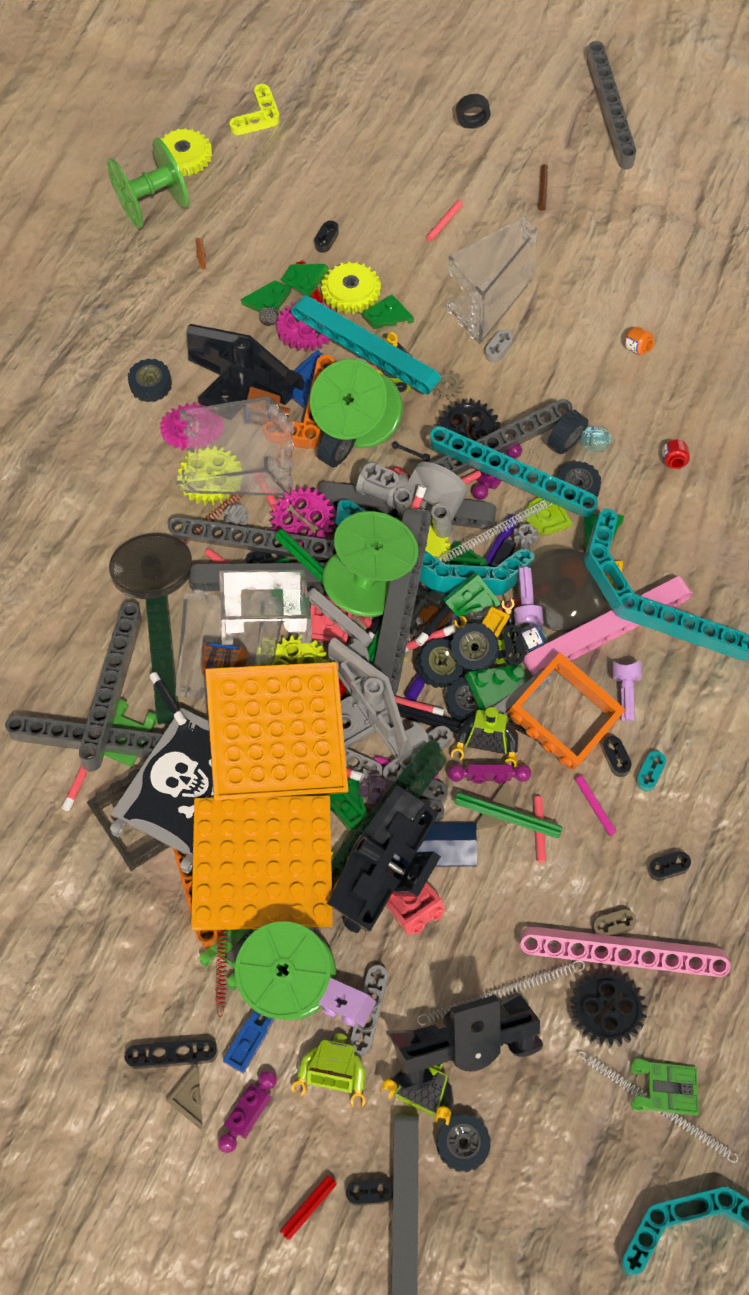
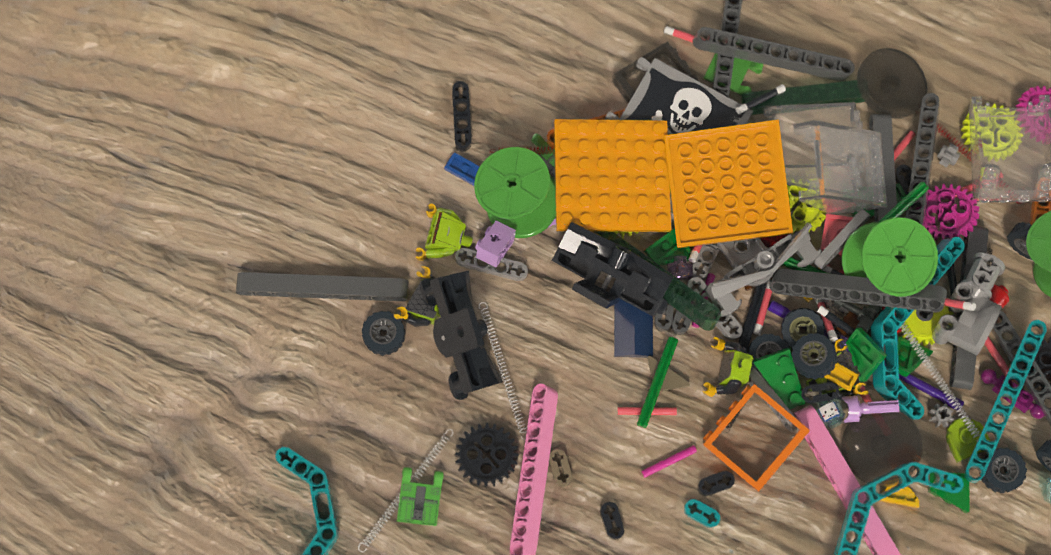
camera: 85 degrees right, 10 degrees up
(187, 1098) = (427, 129): dark tan tile -> none
(223, 656) = (794, 146): torso -> none
(247, 1111) = (415, 172): magenta plate -> none
(308, 1207) = (342, 217): red axle -> none
(369, 1199) = (355, 260): black beam -> none
(415, 912) = (575, 306): coral plate -> none
(425, 457) = (1037, 300): black hinge -> none
(497, 773) = (696, 378): magenta plate -> none
(504, 552) = (923, 396): black beam -> none
(627, 676) = (794, 497): lavender piece -> none

